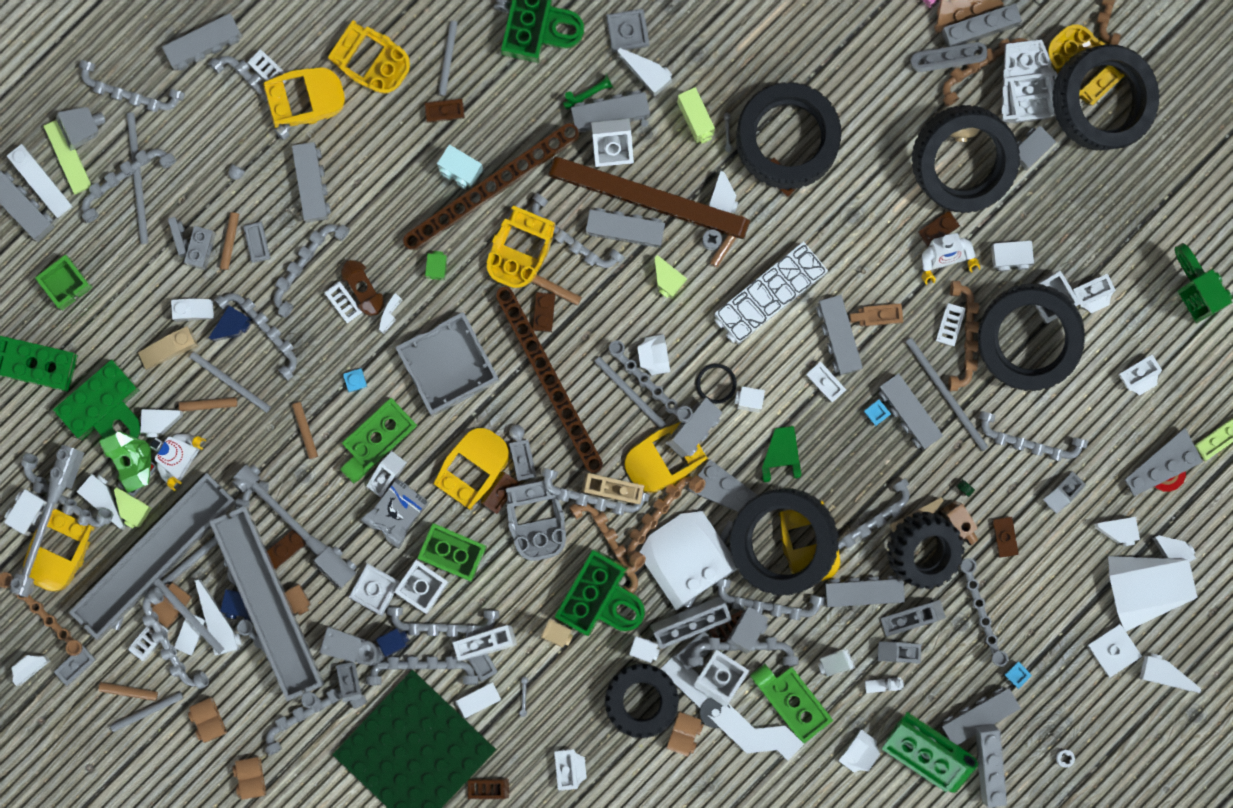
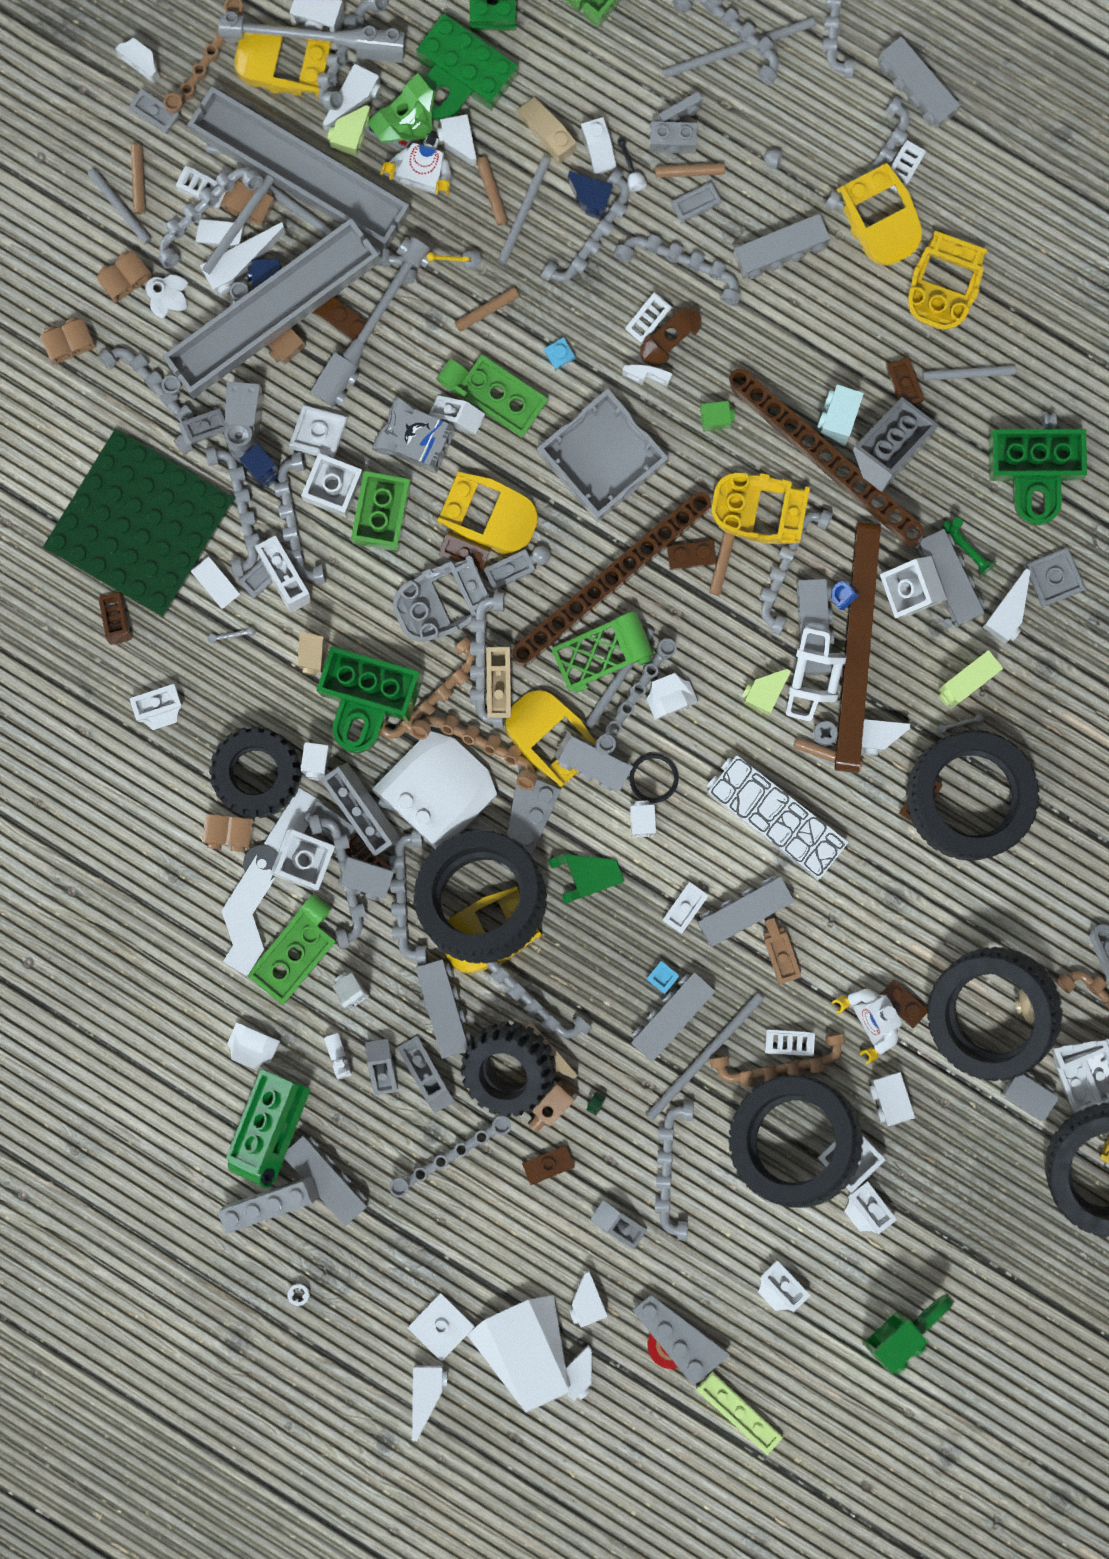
camera: 75 degrees right, 0 degrees up
(228, 286) = (635, 180): none -> white hinge
(232, 686) = (170, 294): none -> white plate
(261, 434) = (469, 259): none -> hinge
(494, 130) = (893, 443): none -> light grey slope
(602, 375) = (631, 639): none -> bright green piece
(605, 198) = (843, 594): none -> tile
(647, 240) = (825, 657): none -> white bar
(1017, 675) = (385, 1215): medium azure plate -> none

